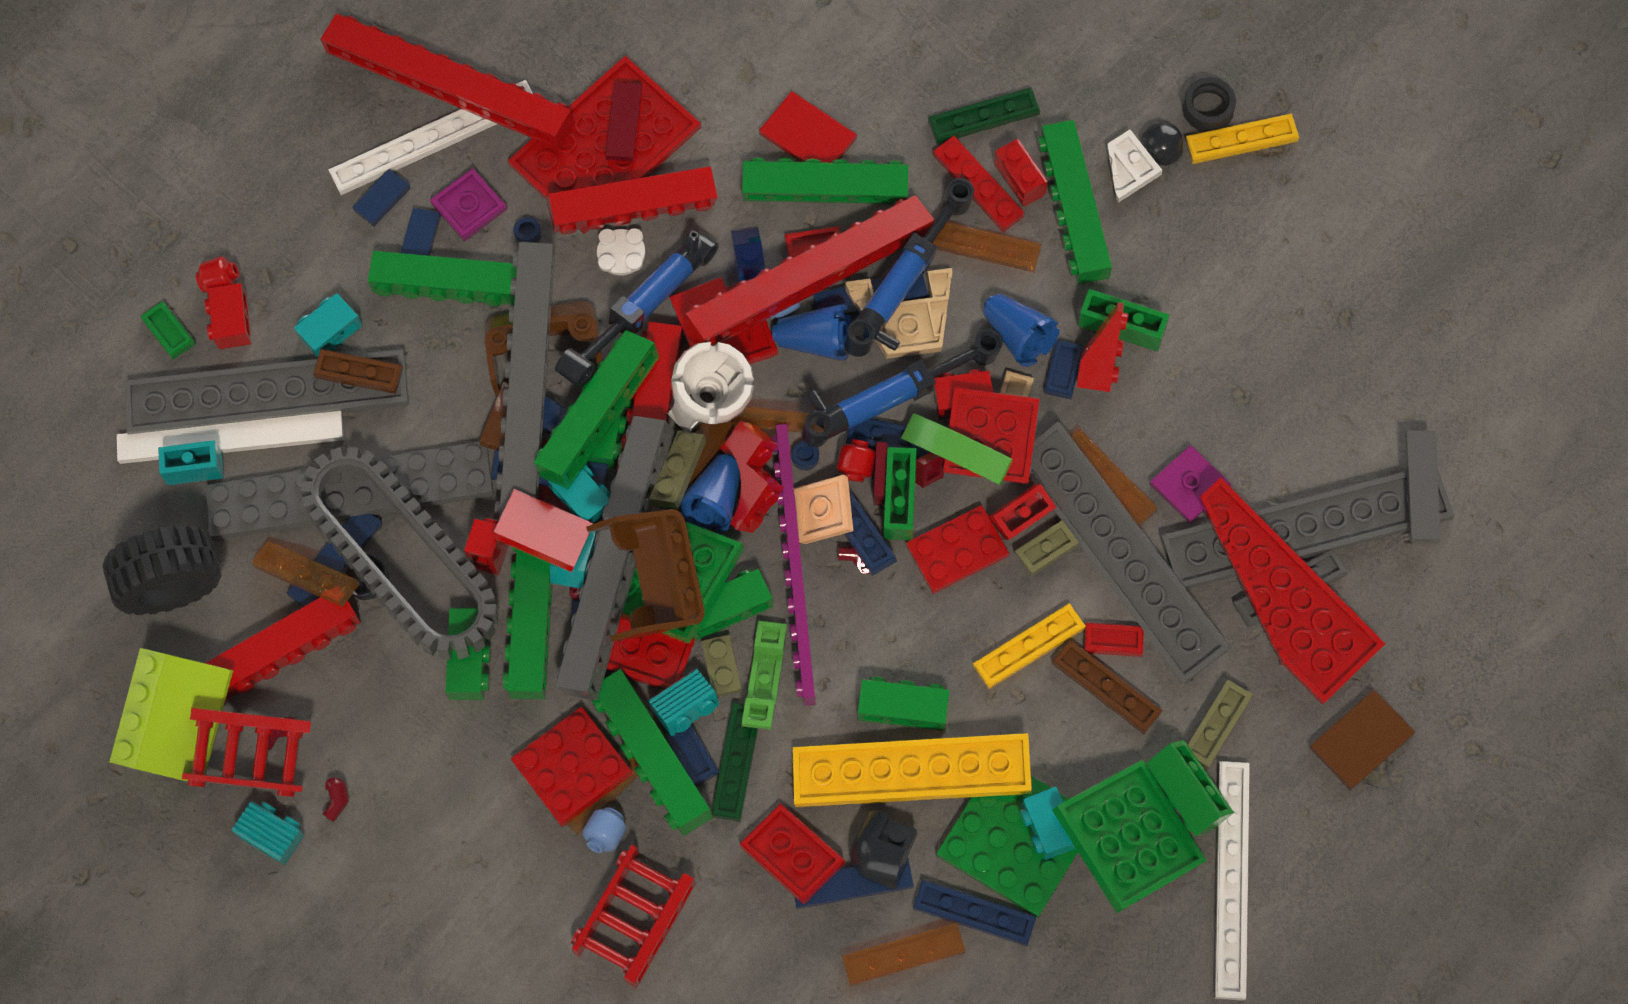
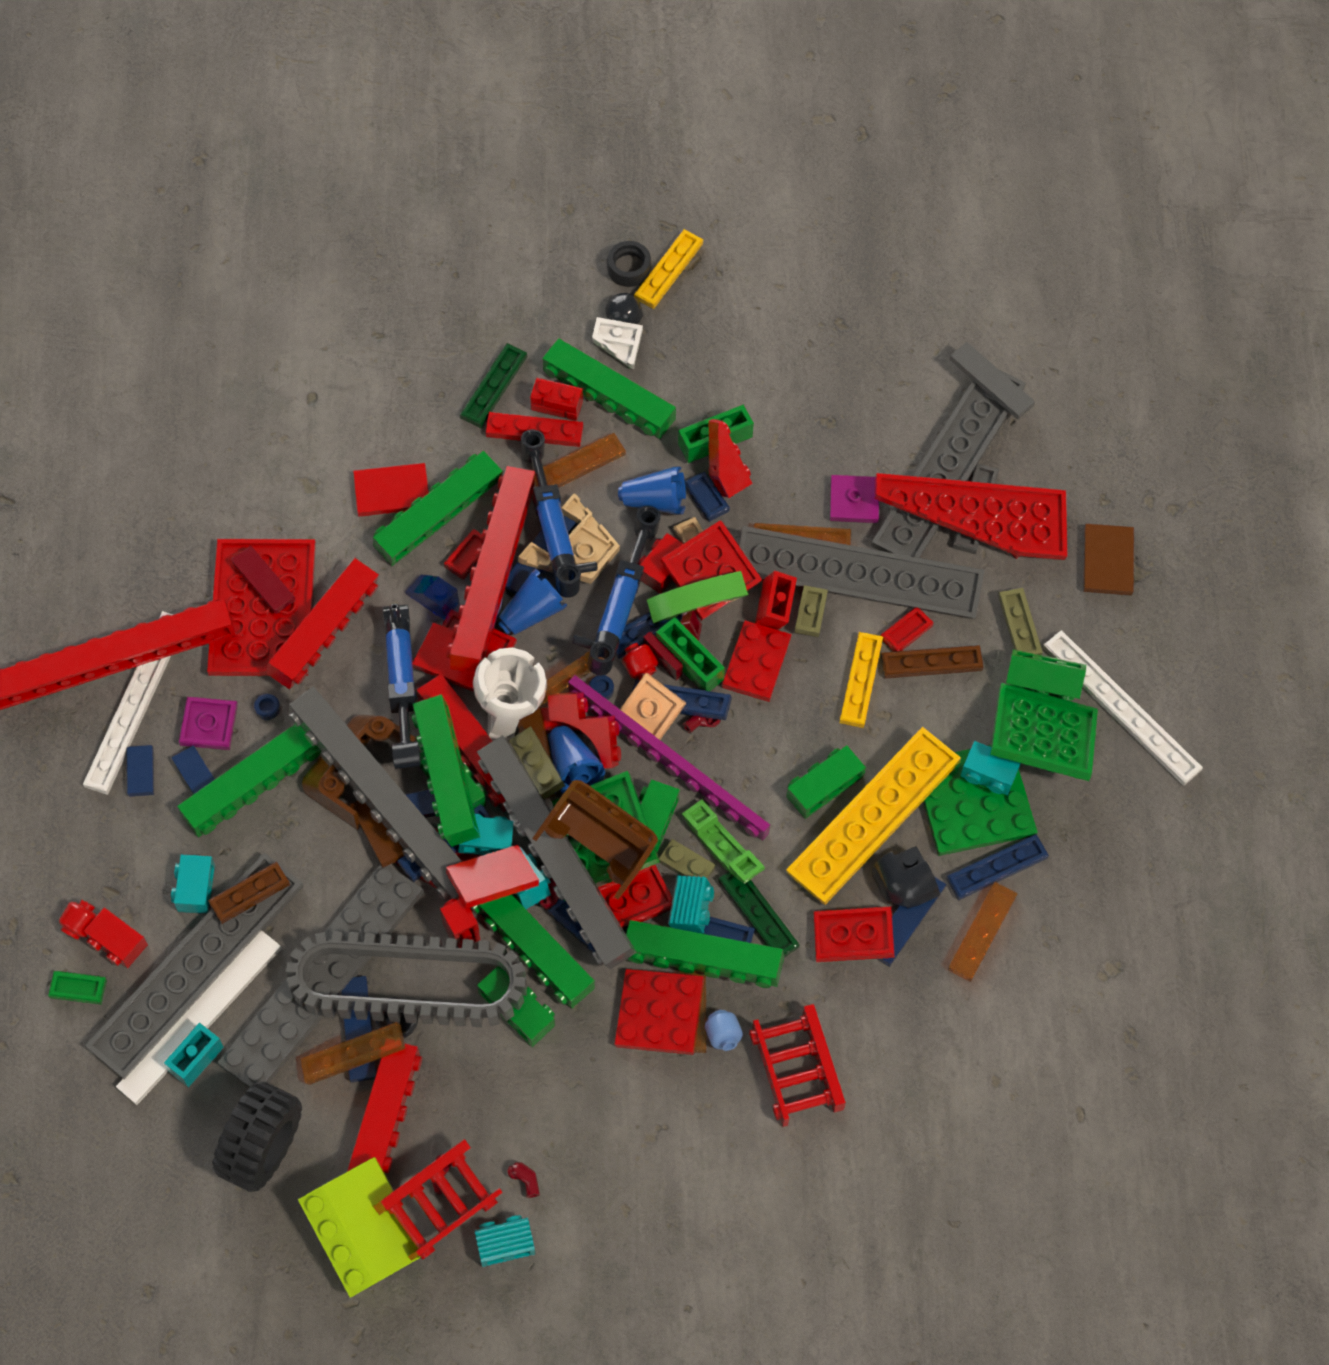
camera: 50 degrees left, 5 degrees down
(620, 251) = (345, 664): white piece -> none

